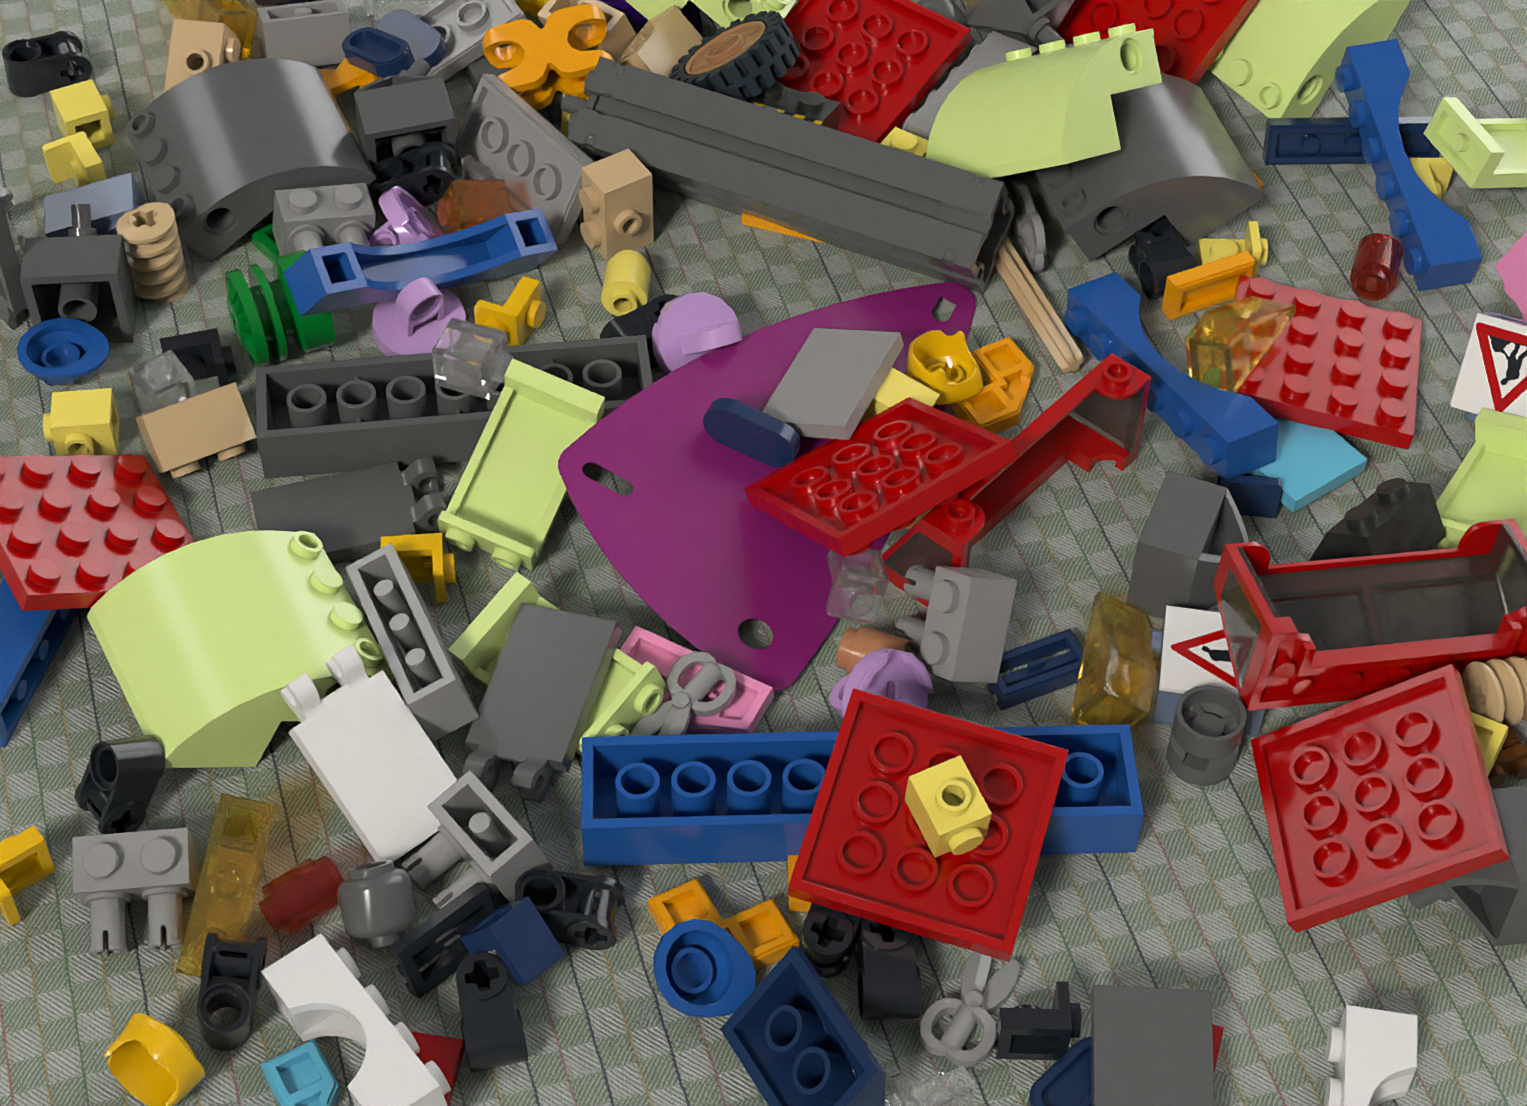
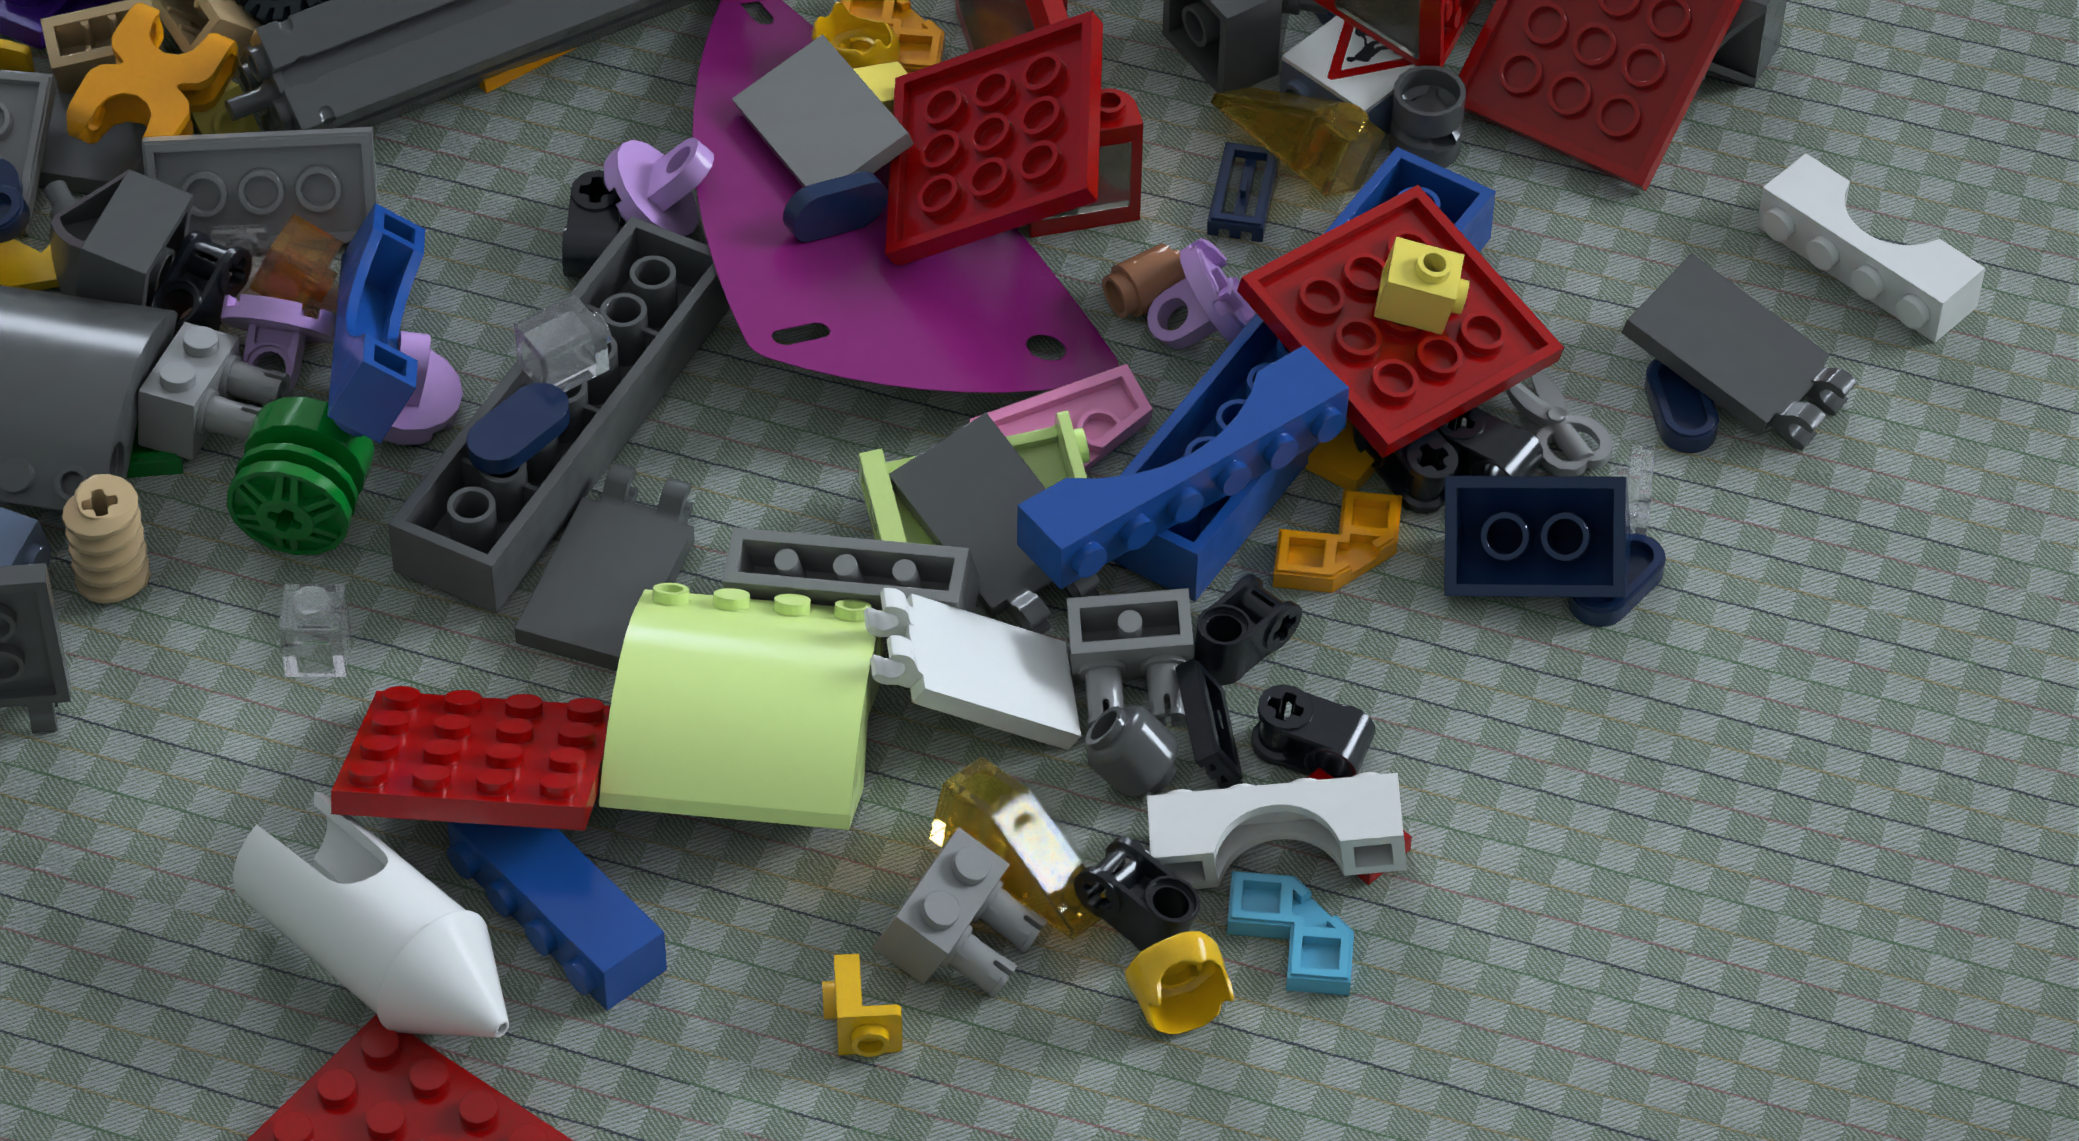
camera: 55 degrees left, 0 degrees up
(62, 350) = (172, 682): blue piece -> none
(81, 279) = (110, 616): dark grey piece -> none
(83, 423) = (292, 716): light yellow brick -> none
(121, 782) = (832, 882): black piece -> none
(196, 429) = (399, 621): tan brick -> none
(202, 354) = (285, 565): black bracket -> none
(301, 895) = (1071, 800): clear red brick -> none
(387, 381) = (518, 428): none -> dark blue tile
(426, 560) = (715, 537): yellow bracket -> none
(513, 475) = (710, 392): yellowish green panel -> none
(519, 314) = (470, 316): yellow bracket -> none
(519, 939) = (1254, 664): dark blue panel -> none
(617, 204) = (410, 152): tan brick -> none
(625, 282) = (503, 211): light yellow brick -> none
(675, 715) = (1102, 440): light grey piece -> none
(703, 969) = (1388, 570): blue piece -> none
(747, 797) = (1092, 521): none -> blue arch
(857, 586) = (1054, 240): clear bracket -> none
(963, 621) = (1189, 186): light grey brick -> none
(1039, 1033) = (1620, 385): black bracket -> none

